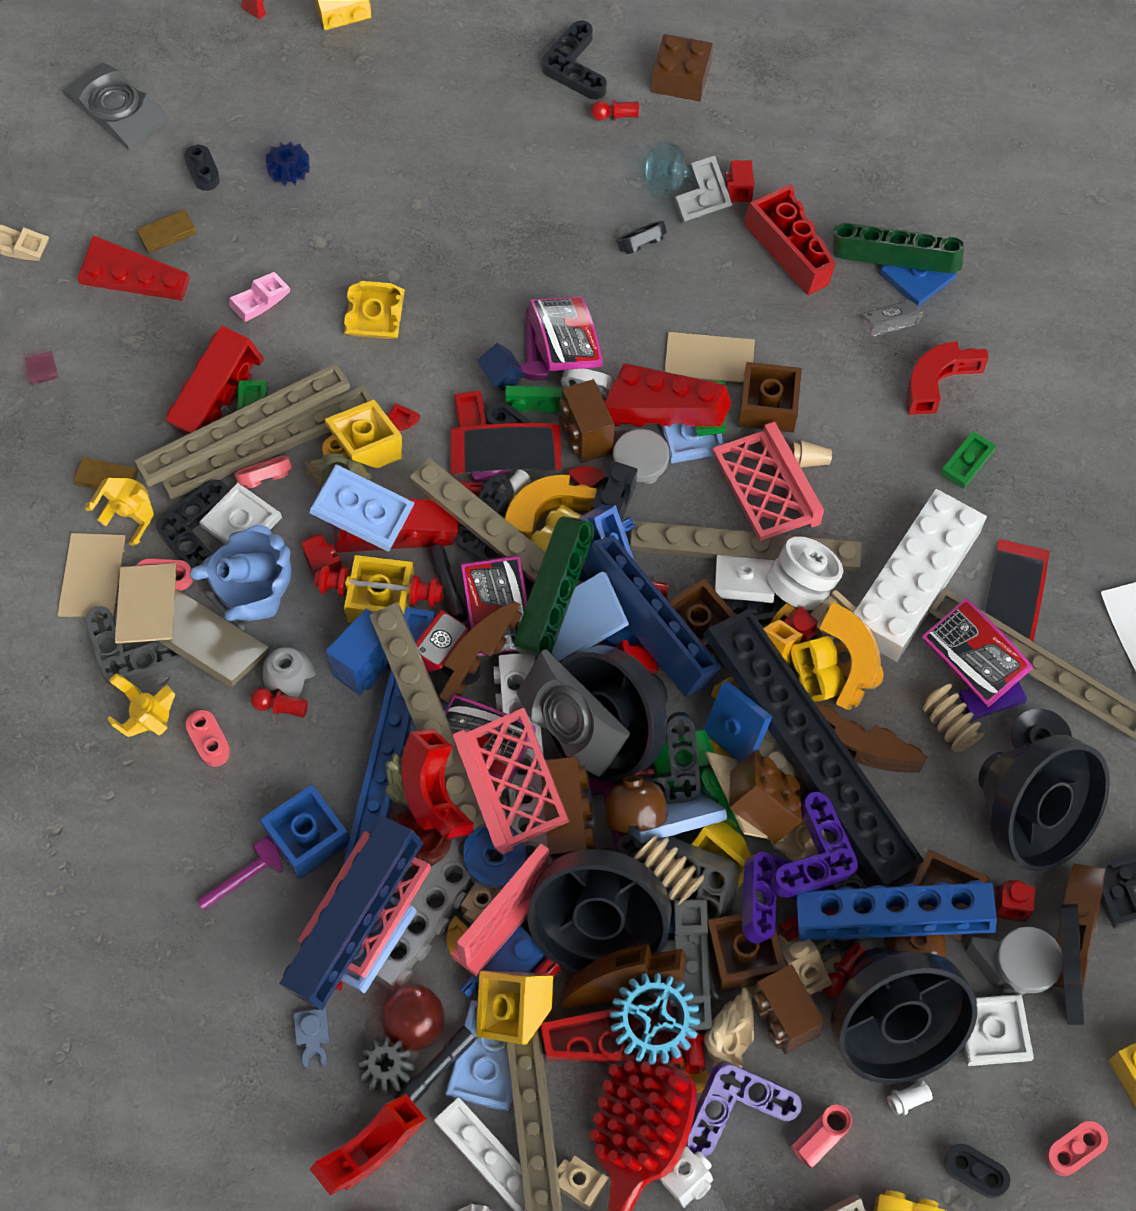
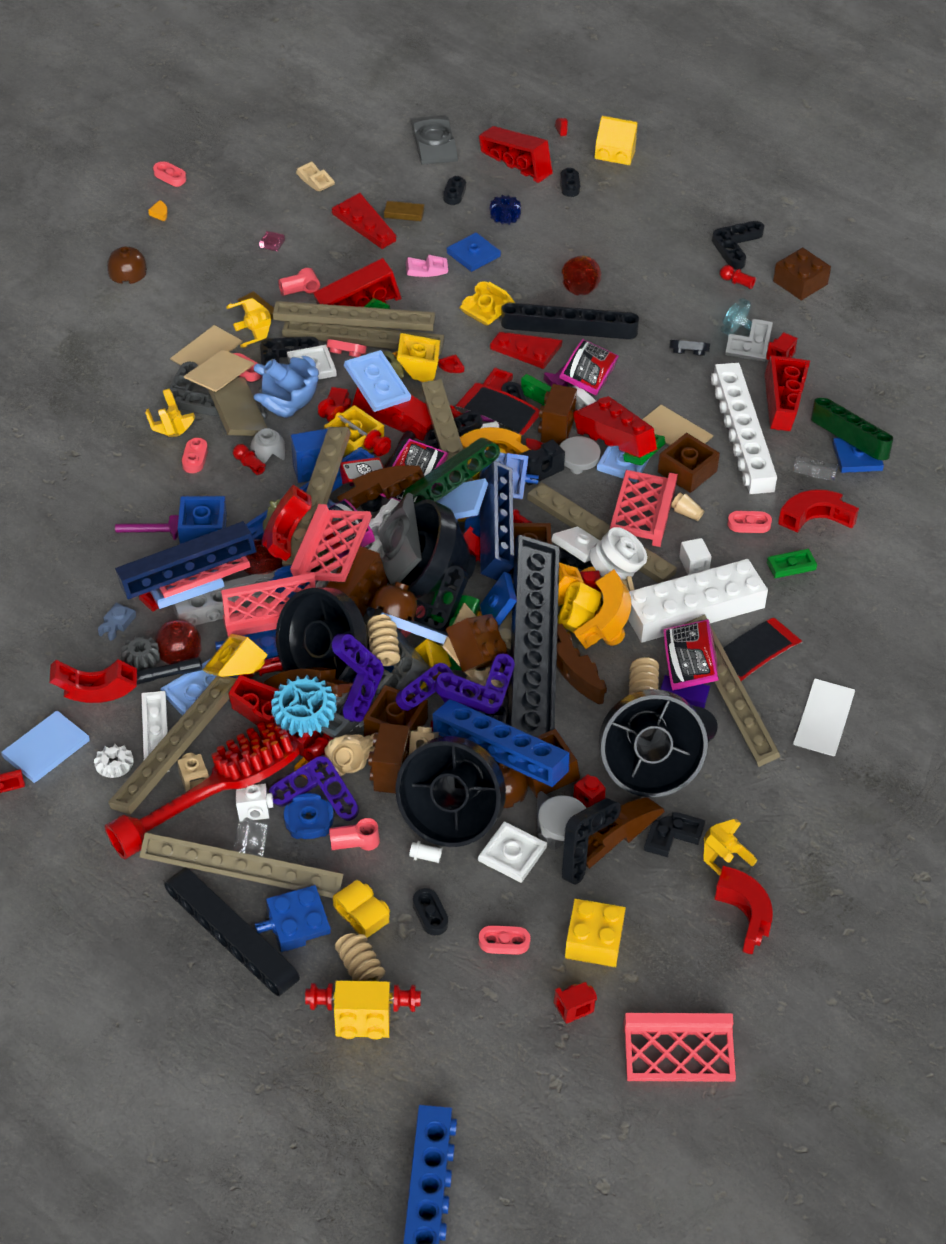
camera: 35 degrees right, 15 degrees down
(133, 406) = (304, 281): none -> coral piece
(236, 70) = (518, 151): none -> red wedge
(296, 243) = (473, 252): none -> blue plate
(322, 77) = (570, 182): none -> black plate
(453, 208) = (581, 275): none -> clear red cylinder
(462, 343) = (526, 348): none -> red wing
(501, 367) = (534, 364): dark blue brick -> none
(524, 263) = (569, 321): none -> black beam
(688, 921) = (357, 704): none -> dark purple beam
(731, 265) = (744, 429): none -> white brick
(771, 1145) = (308, 828): none -> blue plate
(870, 516) = (695, 556): none -> white panel
(883, 434) = (749, 521): none -> coral plate

